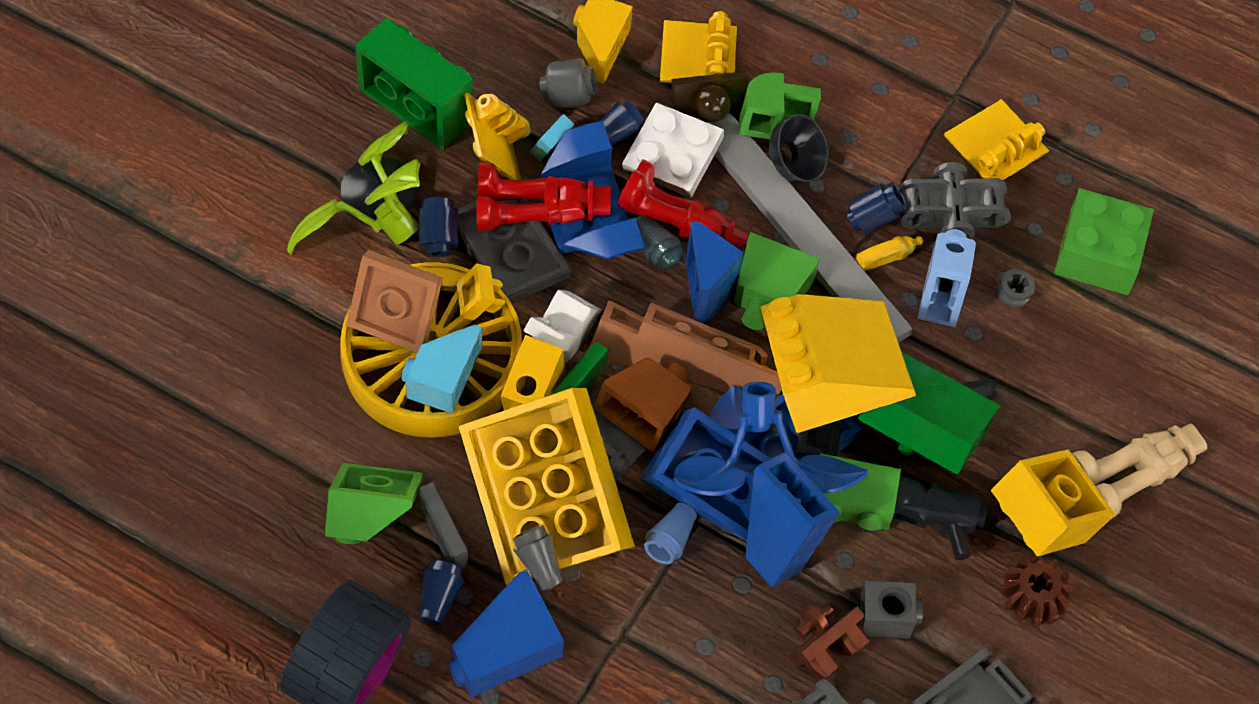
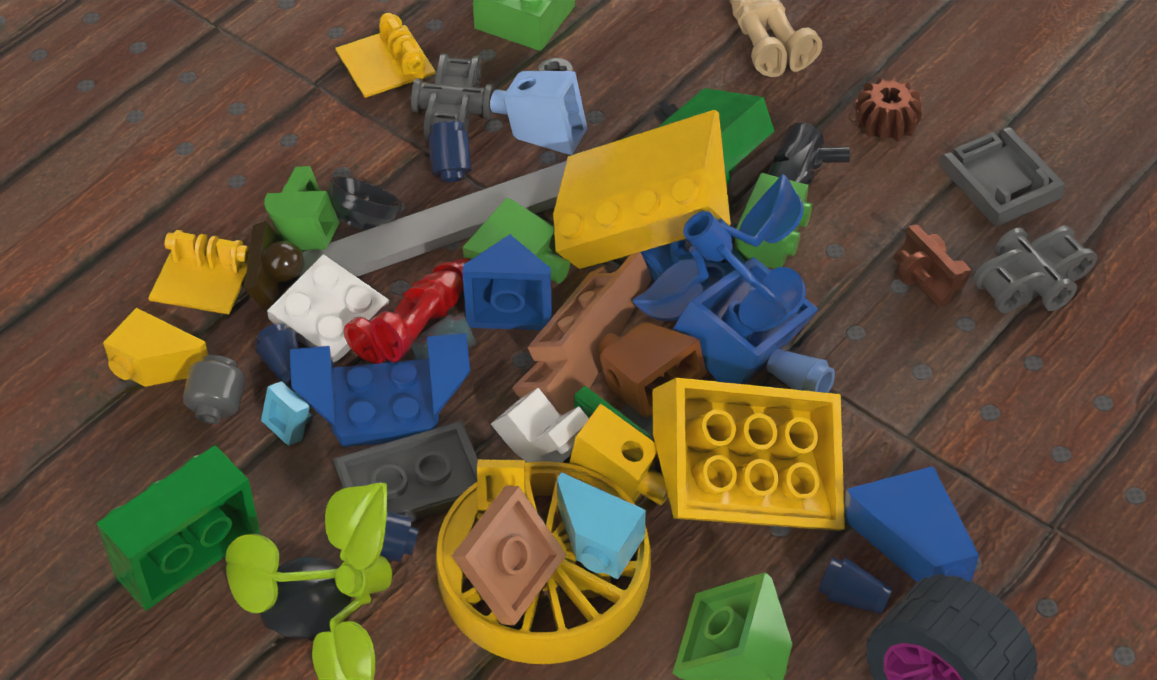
camera: 75 degrees left, 10 degrees down
(442, 526) = (787, 567): dark grey tile -> none
(495, 130) = (258, 456): yellow hinge -> none
(538, 555) = (831, 472): dark grey cone -> none
(563, 200) = (382, 404): red piece -> none
(785, 519) = (825, 252): blue slope -> none
(879, 622) = (901, 208): dark grey brick -> none
(887, 252) = (496, 156): yellow piece -> none
(1052, 502) = (811, 72): yellow brick -> none

